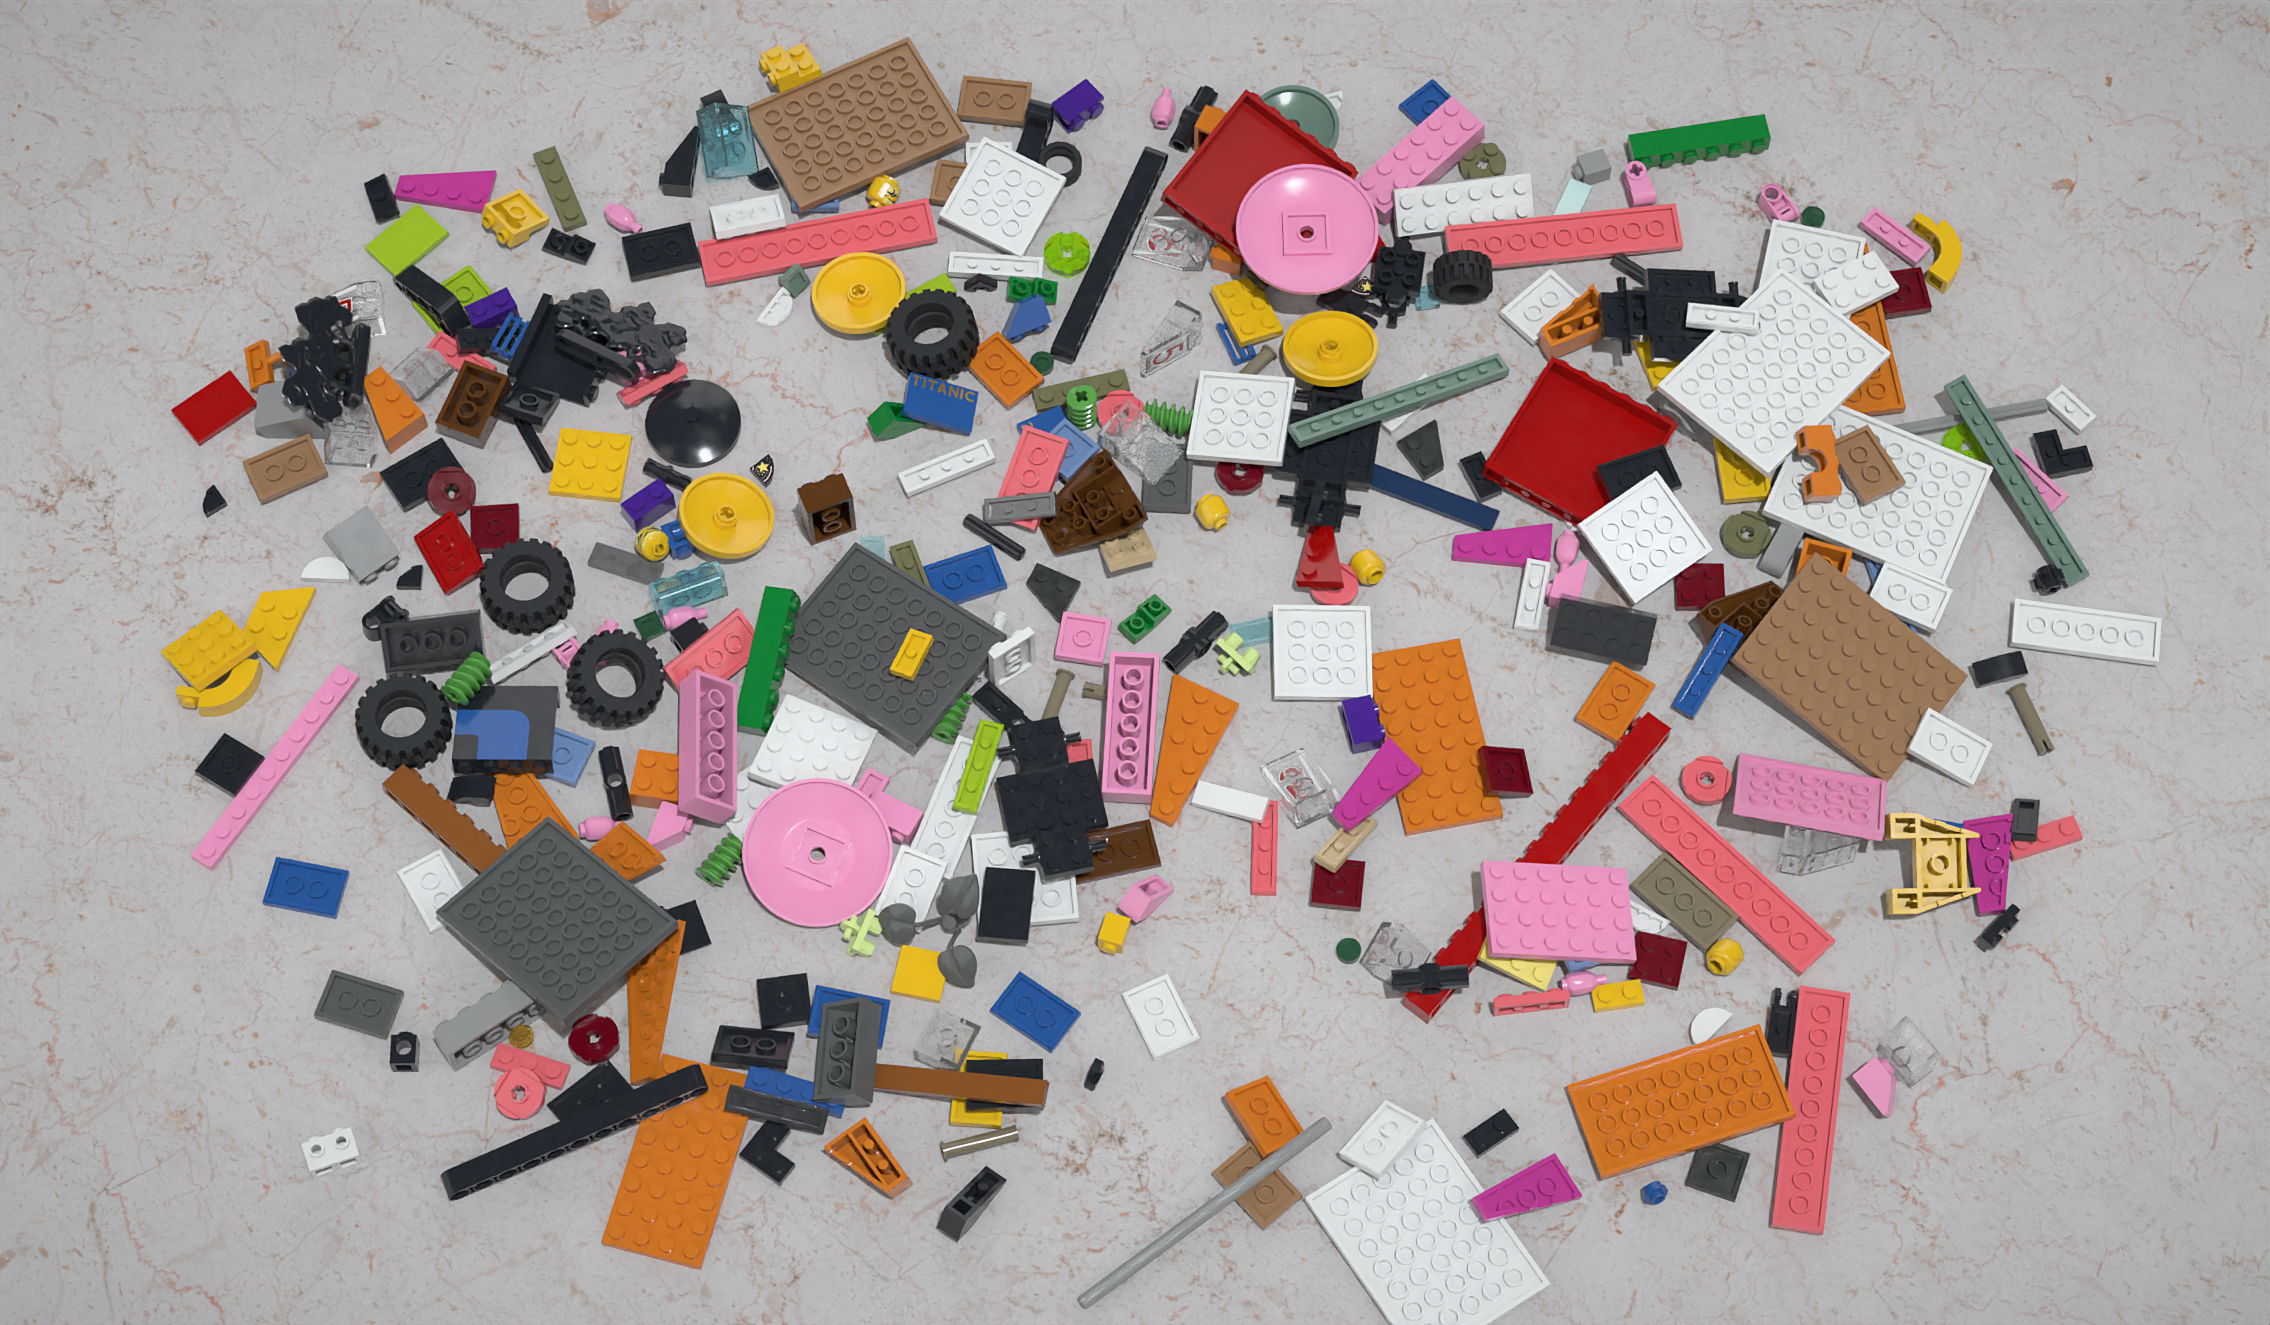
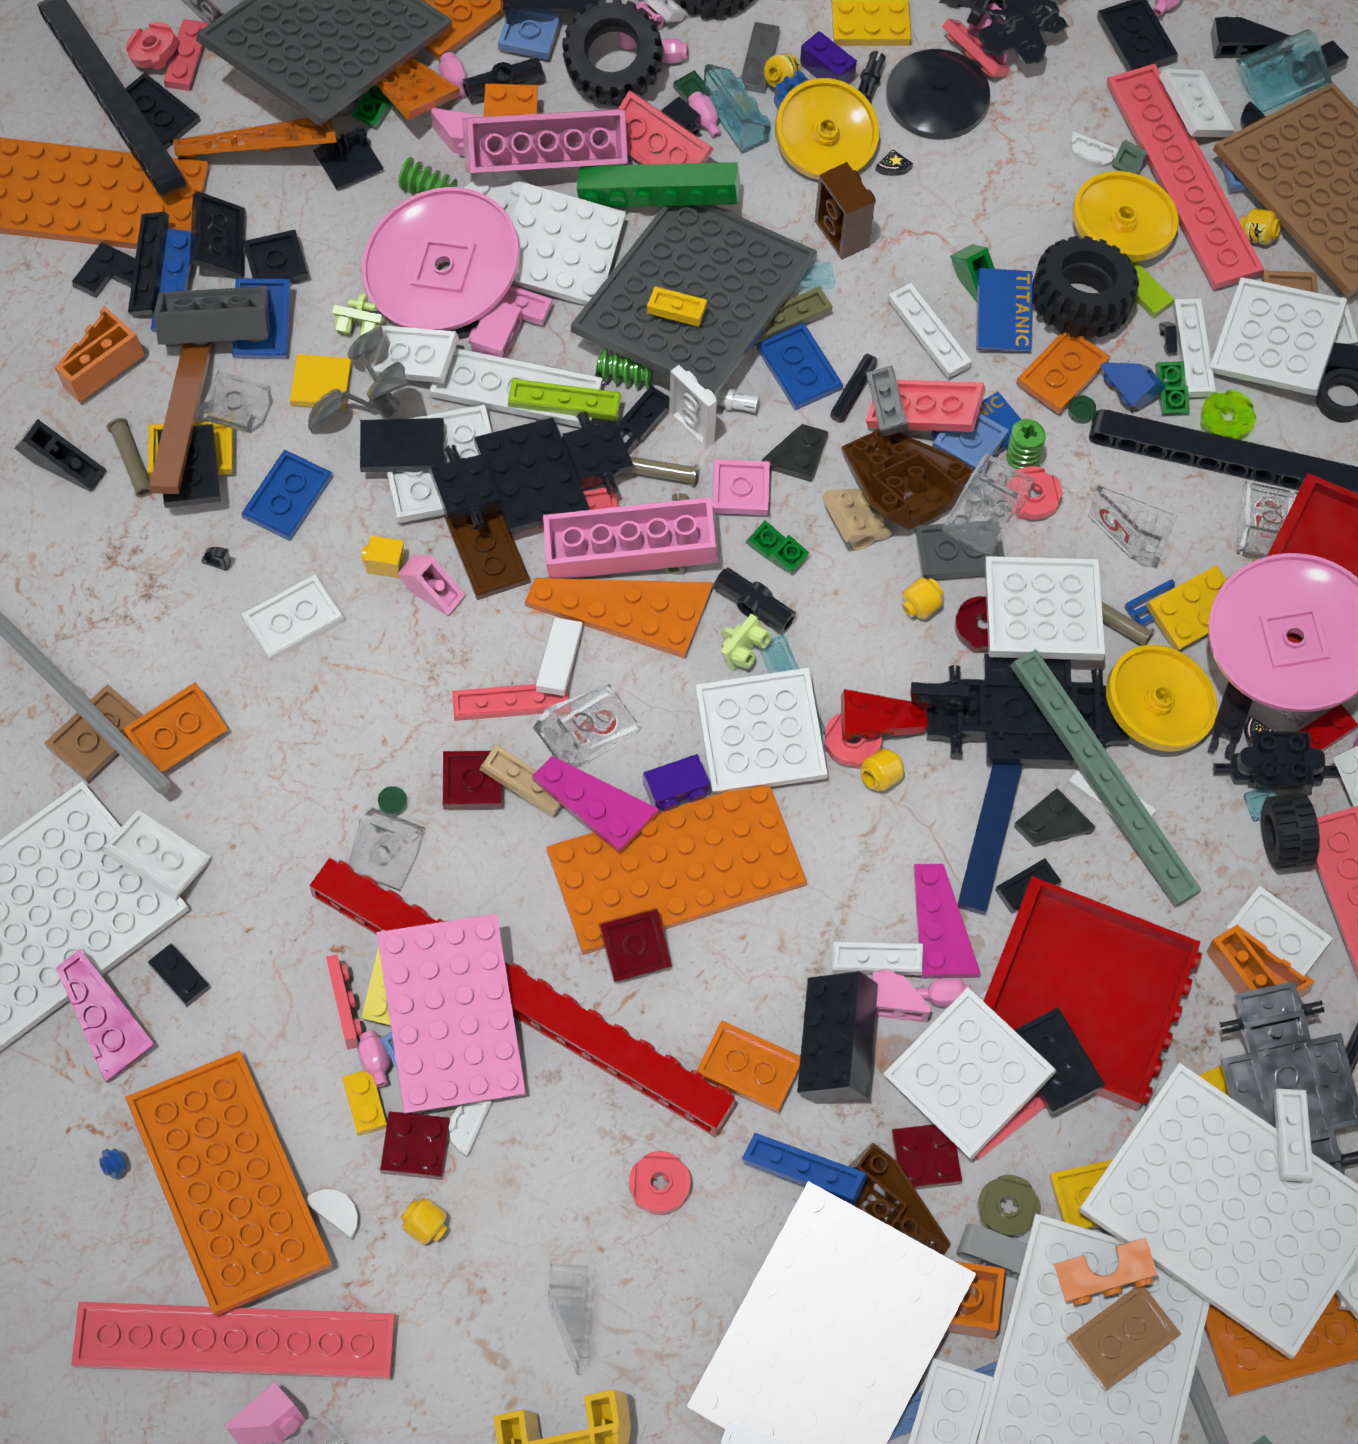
camera: 80 degrees right, 0 degrees up
(594, 1052) = (214, 112): dark red plate -> none
(1055, 395) = (1058, 456): olive plate -> none
(1170, 417) = (1035, 532): bright green piece -> none
(1430, 978) = (348, 877): black piece -> none
(1684, 902) = (492, 1169): dark tan plate -> none
(1718, 1171) = (148, 1238): pearl dark grey tile -> none
(1726, 874) = (533, 1217): coral plate -> none
(1782, 1025) = (343, 1296): black hinge -> none
(1810, 797) = (641, 1301): bright pink plate -> none

